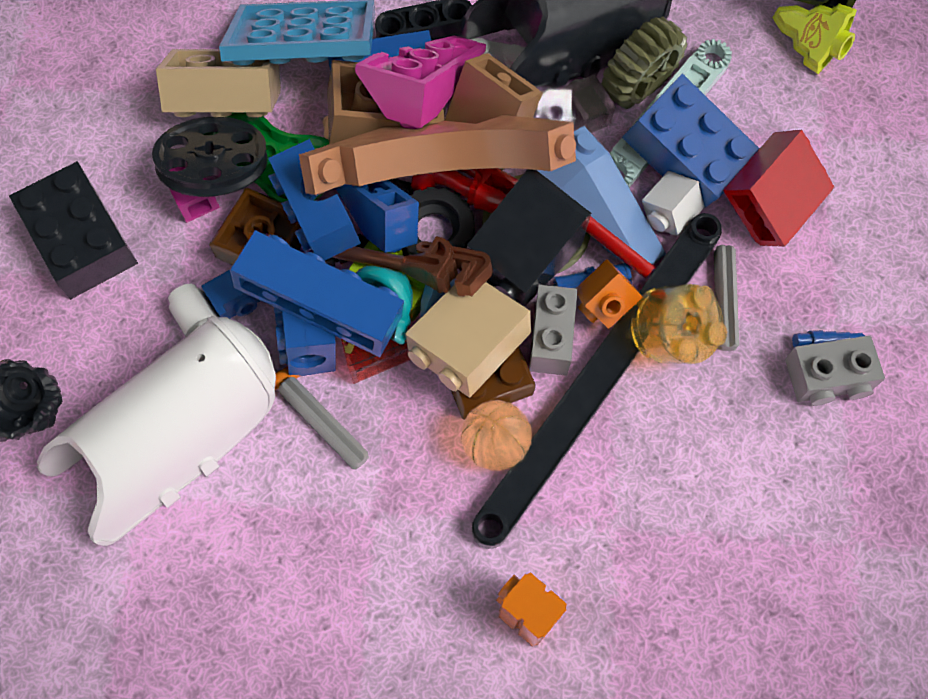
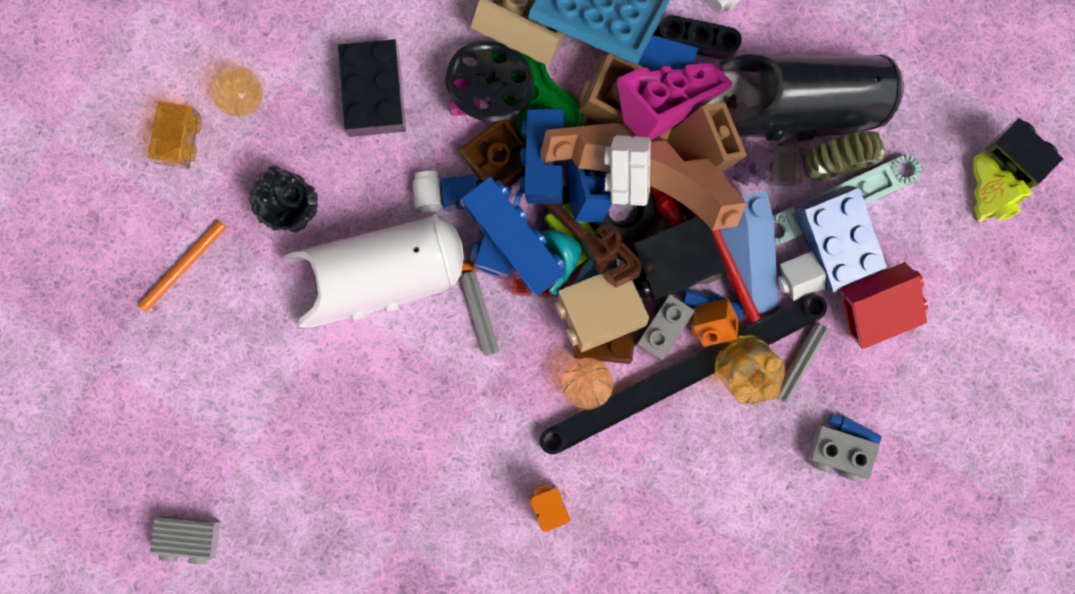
camera: 30 degrees right, 15 degrees up
(419, 153) = (628, 170): none -> white brick

